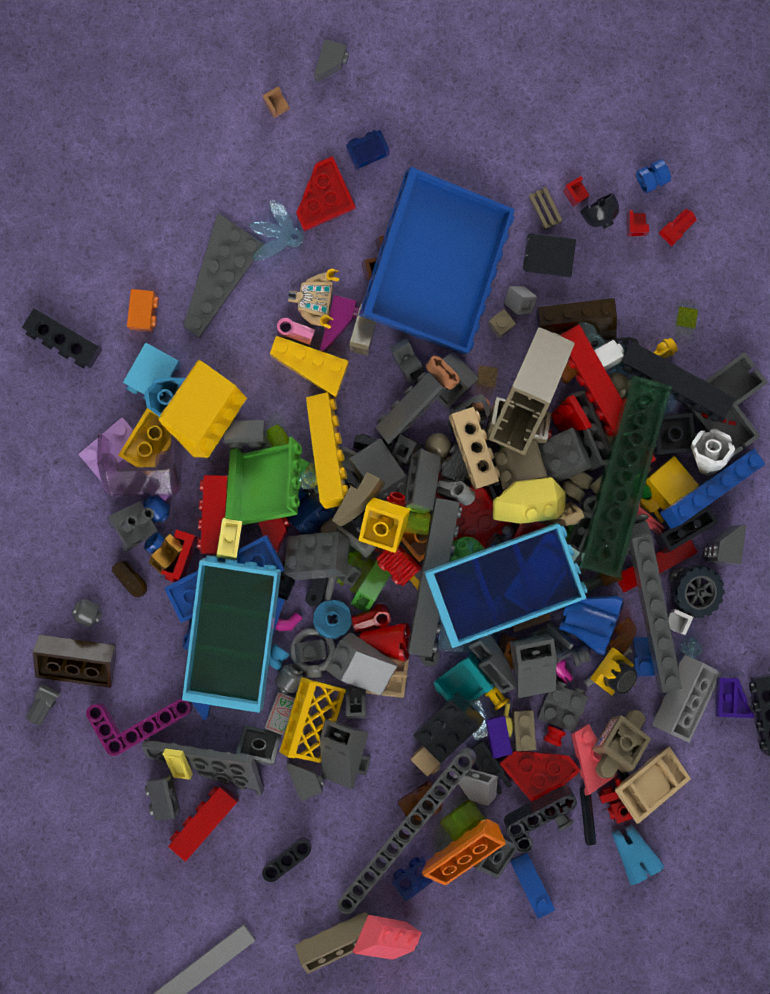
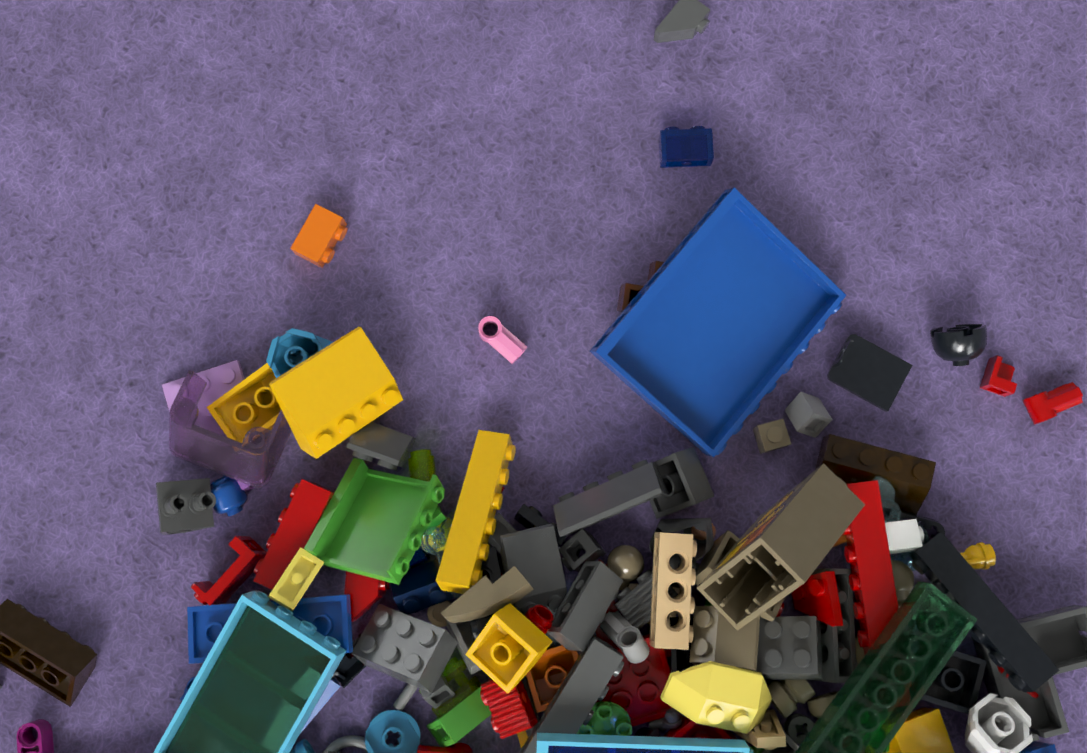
camera: 25 degrees right, 5 degrees down
(37, 321) = (184, 198): black brick -> none
(86, 612) = (80, 594): dark grey head -> none
(130, 579) = (155, 573): dark brown arm -> none
(149, 366) = (297, 309): medium azure panel -> none
(154, 542) = (205, 538): blue piece -> none
(166, 554) = (213, 561): pearl gold brick -> none
(224, 265) = (447, 220): dark grey wing -> none
(275, 102) = (593, 46): medium nougat panel -> none
(282, 233) = (523, 200): clear light blue plant -> none
(288, 625) = (334, 720): dark pink arm -> none
(313, 365) = (506, 392): yellow wedge -> none
(315, 298) = (544, 307): torso -> none
(316, 593) = (385, 695): black leg -> none
(324, 196) = (607, 184): red plate -> none
(342, 312) = (564, 345): magenta slope -> none
(362, 335) = (584, 379): dark tan slope -> none
(407, 361) = (629, 435): dark grey brick -> none
(418, 524) = (556, 662): clear neon green brick -> none
(443, 372) = (670, 470): nougat beam -> none
(487, 376) = (726, 496): clear yellow tile -> none
(494, 539) = (648, 725): black tile -> none
(539, 194) = (873, 288): dark tan tile -> none
(576, 191) = (934, 304): red panel -> none
(655, 175) = (1047, 323): blue wheel -> none
(687, 317) = (1021, 525): clear neon green tile -> none

